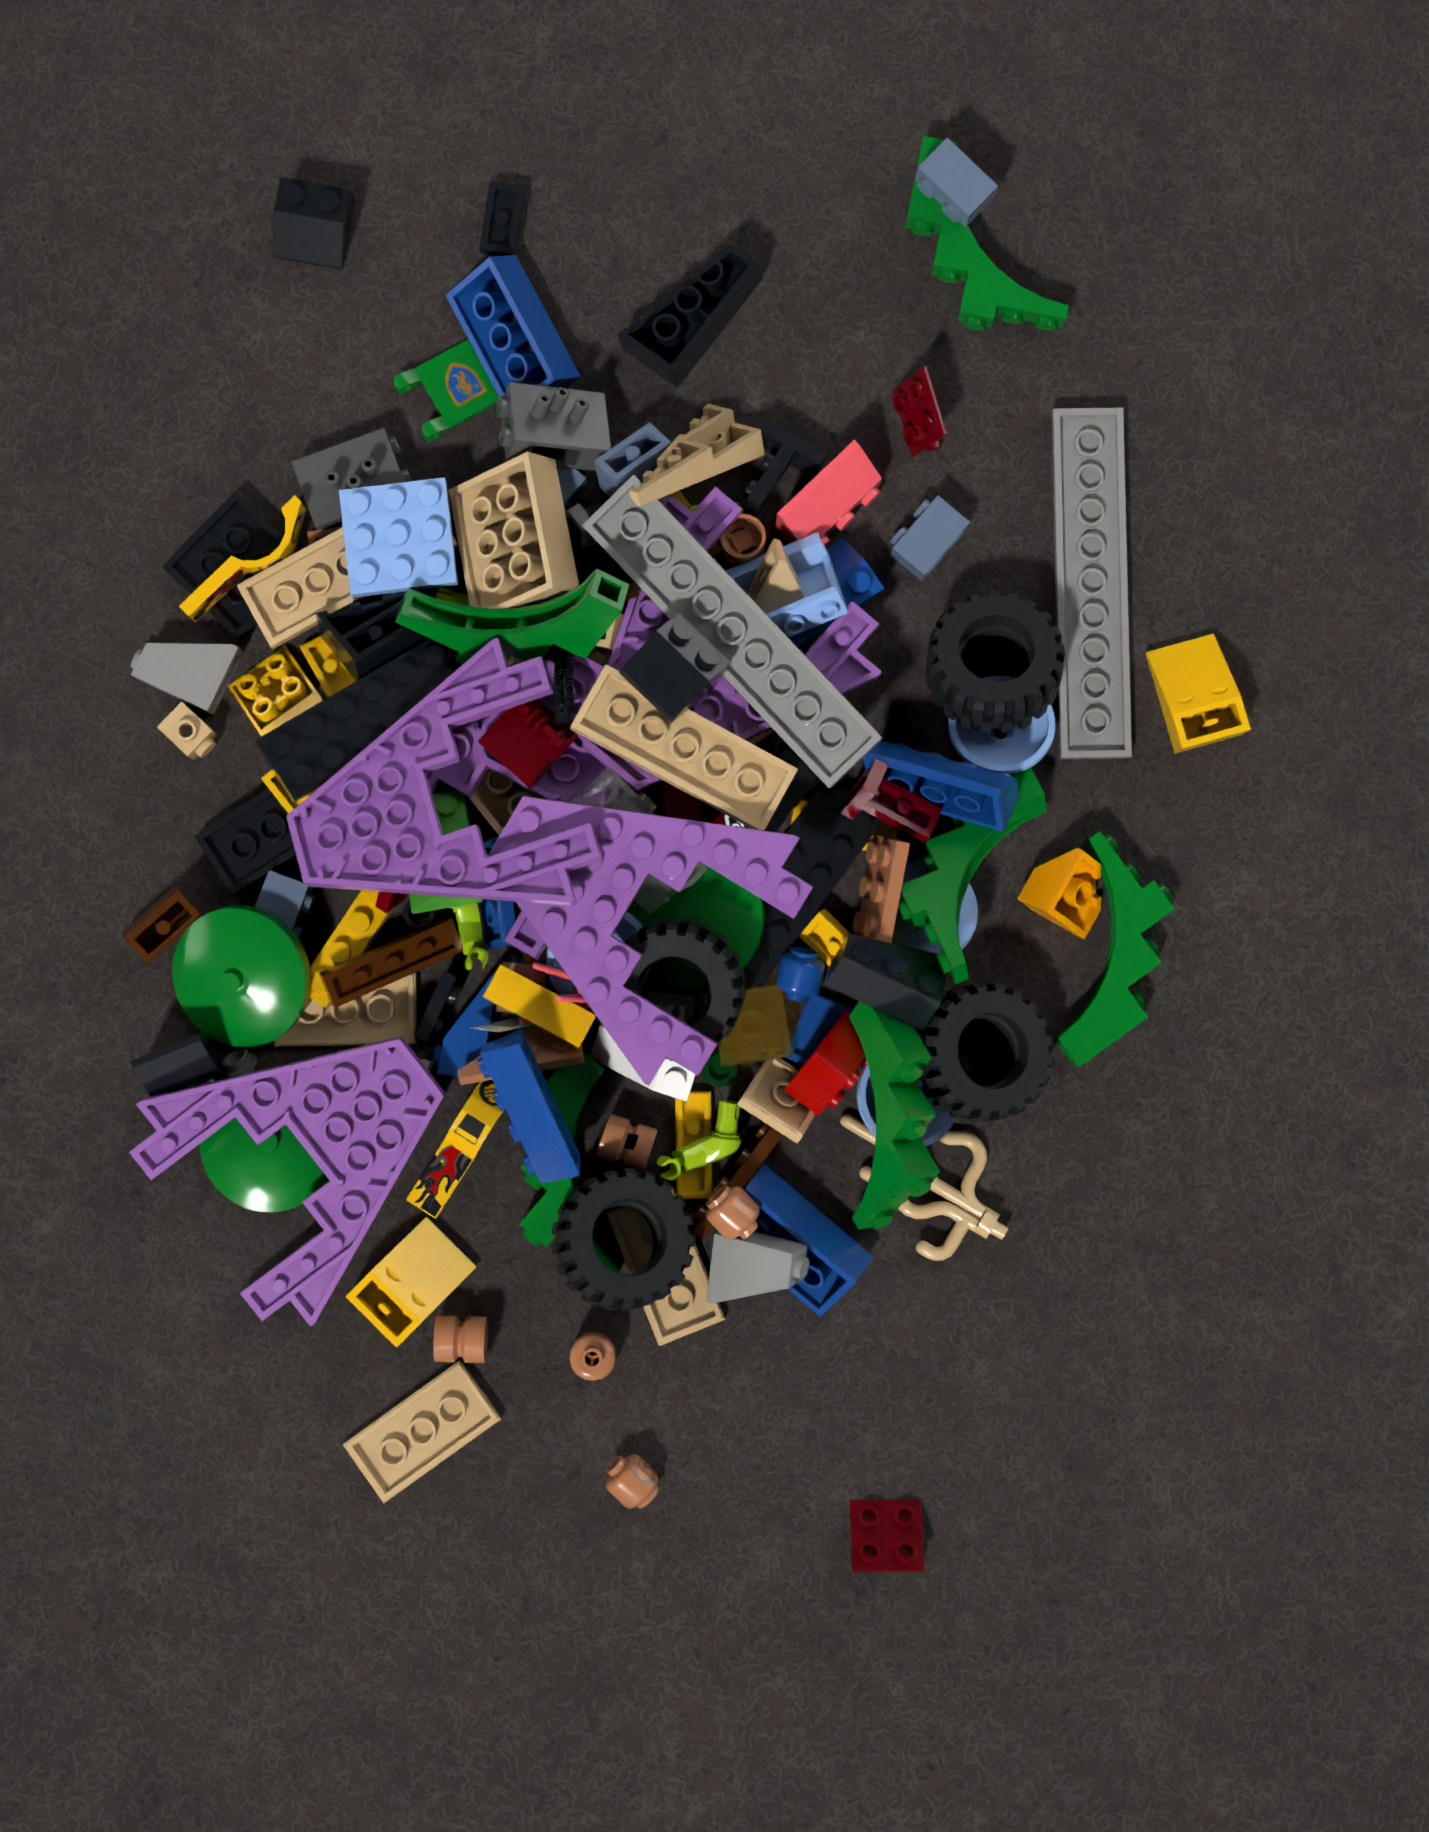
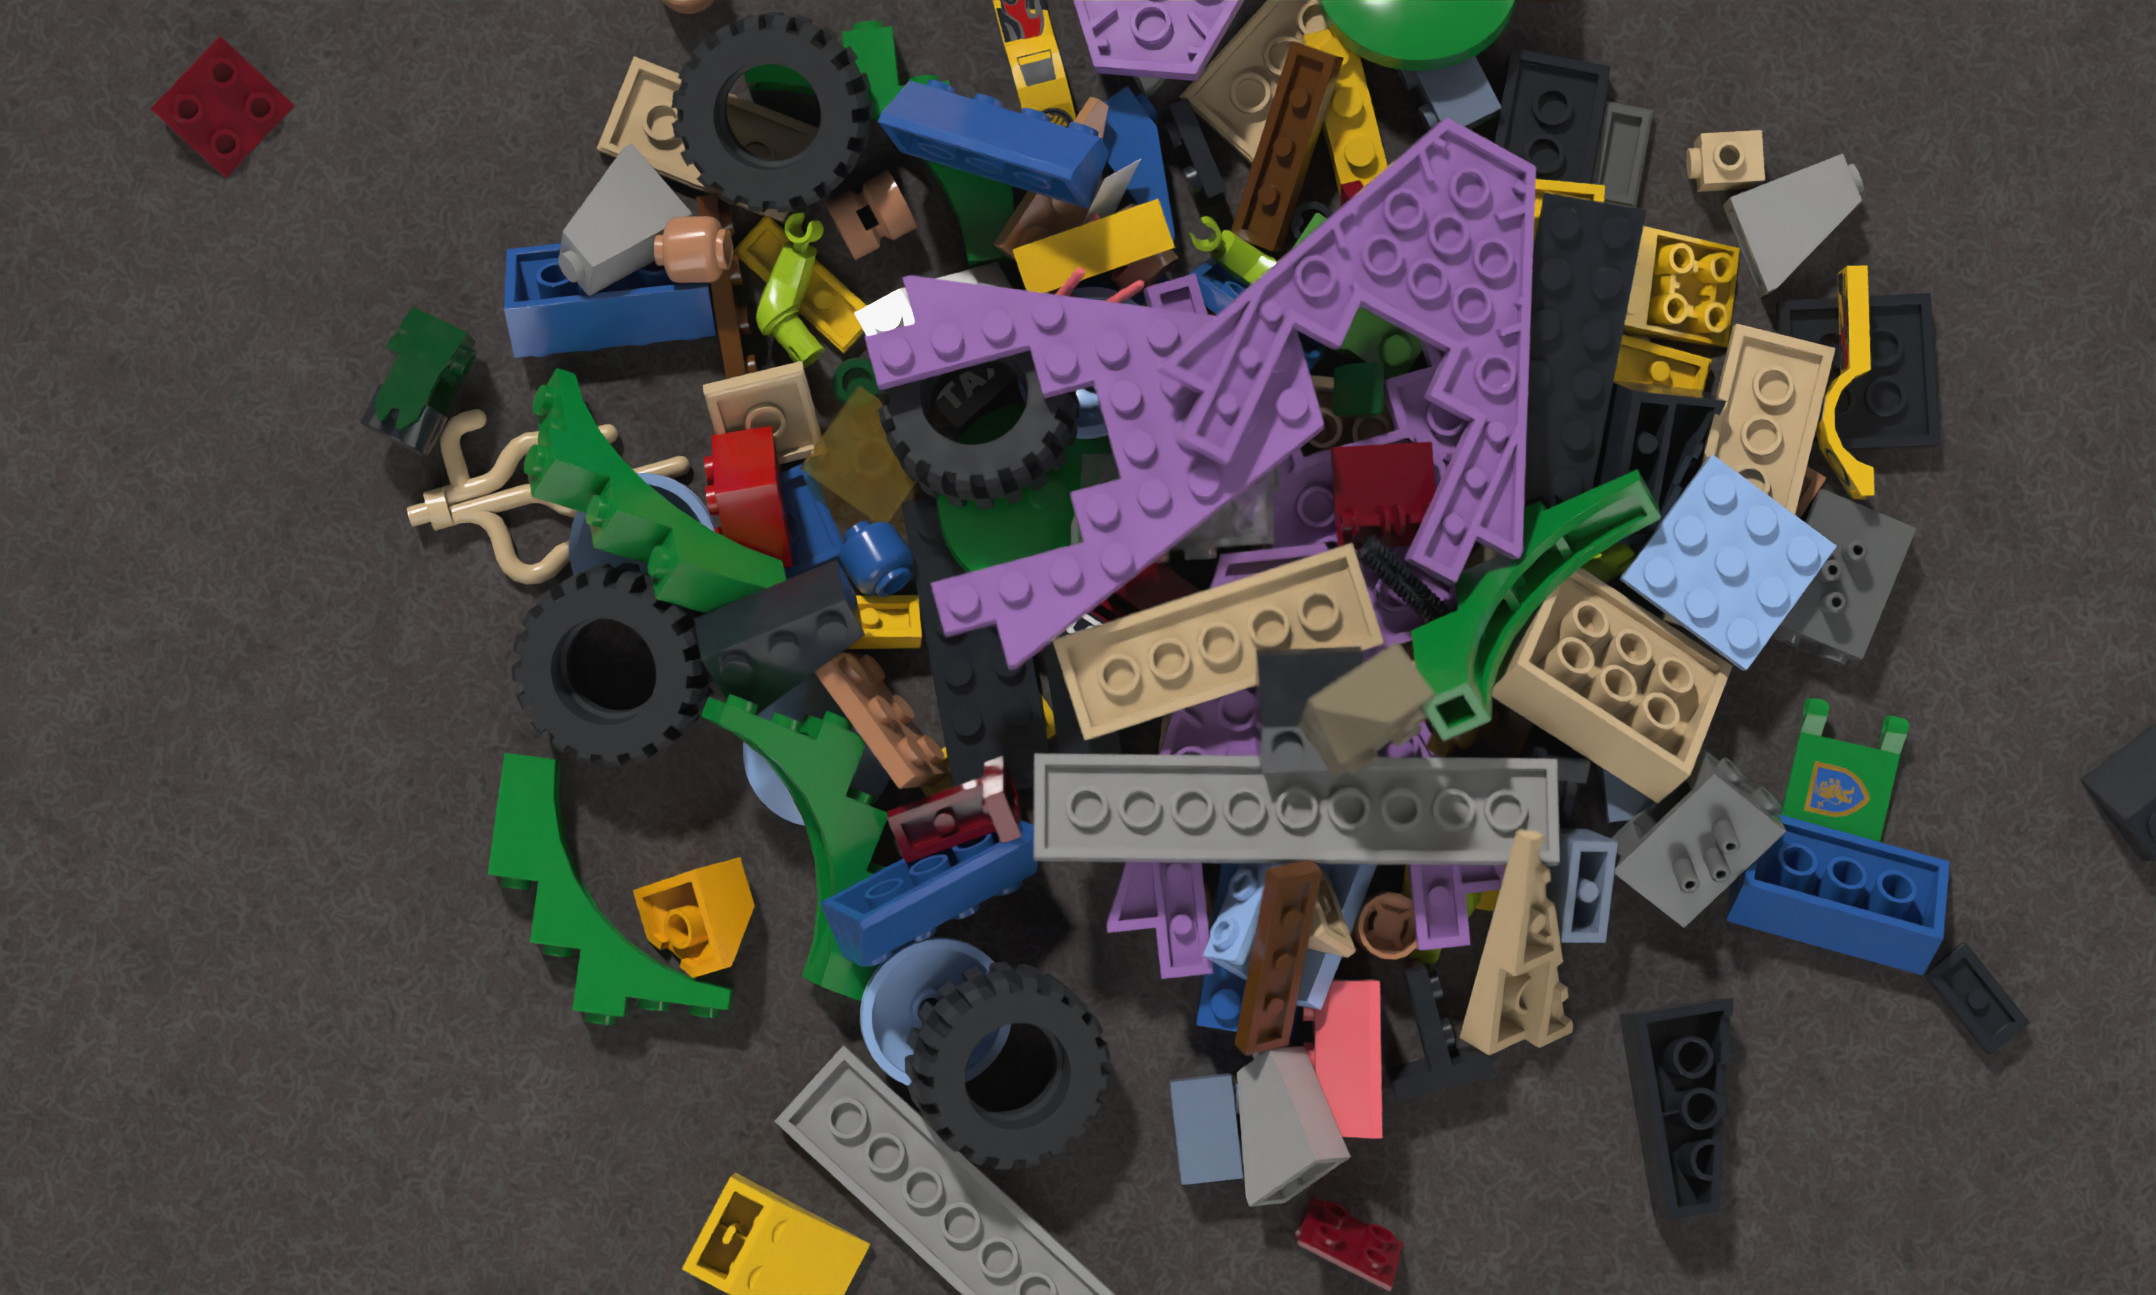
camera: 135 degrees right, 0 degrees up
(234, 790) = (1621, 152): none -> dark grey tile
(485, 803) = (1358, 390): none -> dark green slope
(650, 631) = (1366, 711): none -> dark tan slope
(813, 572) = (1278, 956): none -> reddish brown plate
(891, 498) = (1285, 1126): none -> light grey slope
(933, 1290) = (421, 382): none -> dark green piece

